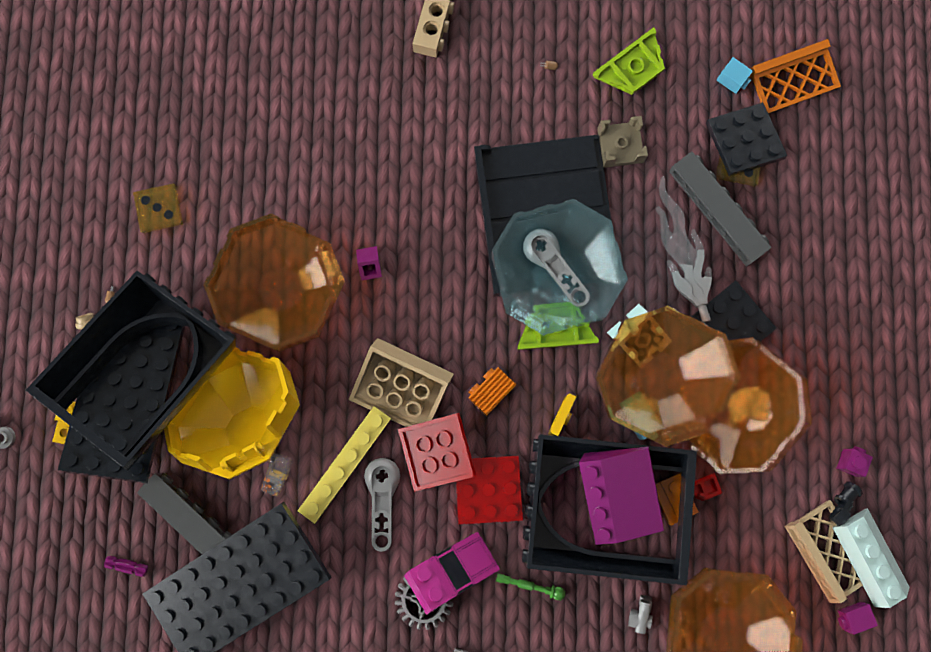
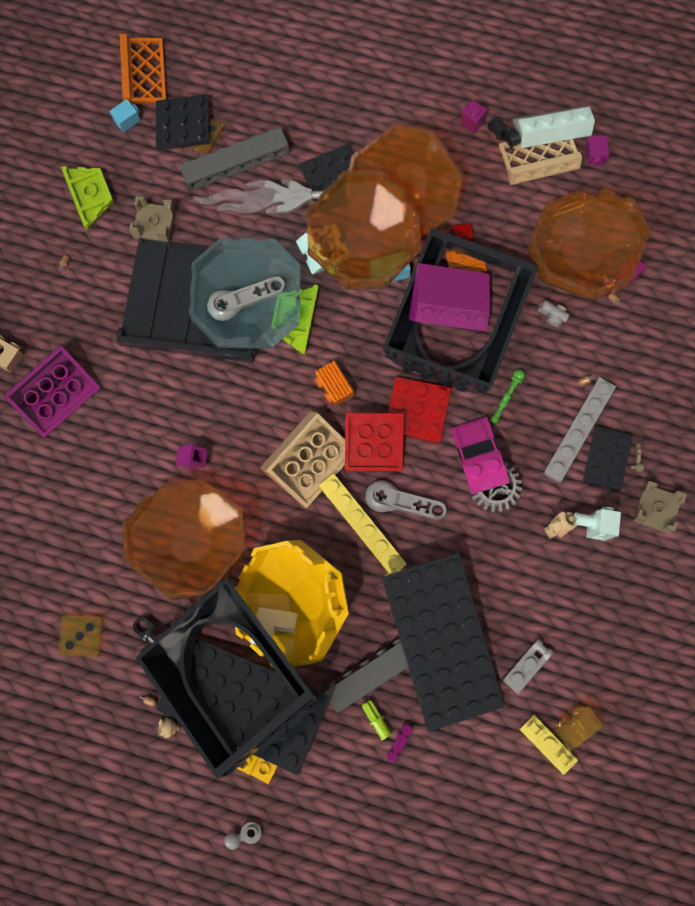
camera: 65 degrees left, 5 degrees down
(143, 535) = (376, 720): none -> lime axle
(175, 277) = (149, 633): none -> black connector
(218, 402) = (277, 620): none -> white tile
(277, 474) = (357, 586): clear leg -> none
(403, 97) = (51, 391): none -> magenta slope
(563, 415) = (371, 328): yellow plate -> none

